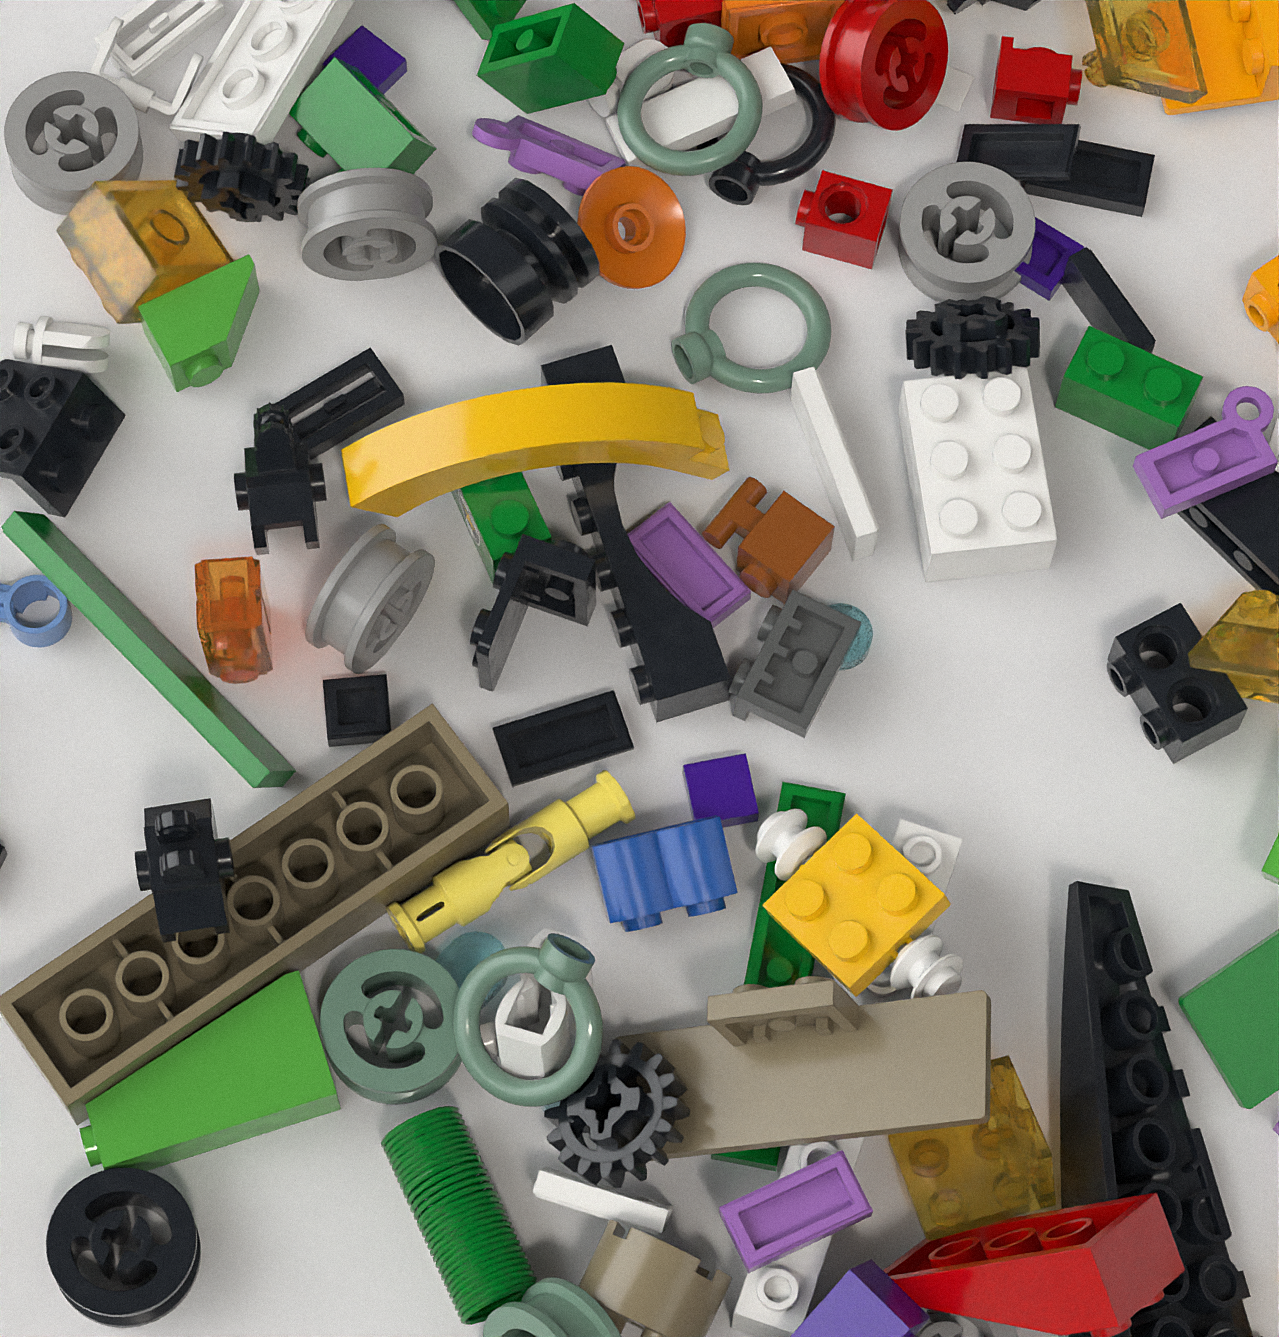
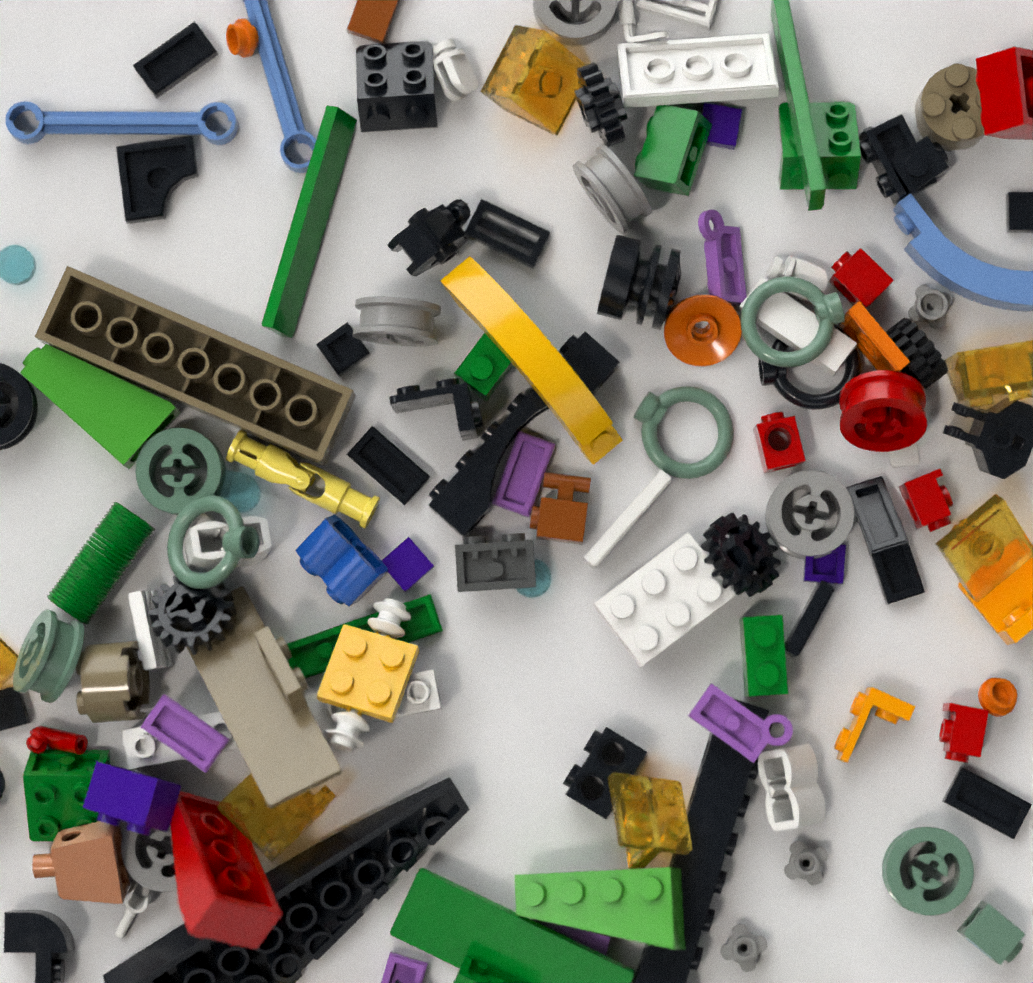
camera: 65 degrees right, 15 degrees up
(185, 868) = (181, 321): black hinge -> none
(202, 323) = (508, 135): bright green slope -> none
(233, 618) = (344, 258): clear orange brick -> none
(551, 59) = (772, 228): green brick -> none

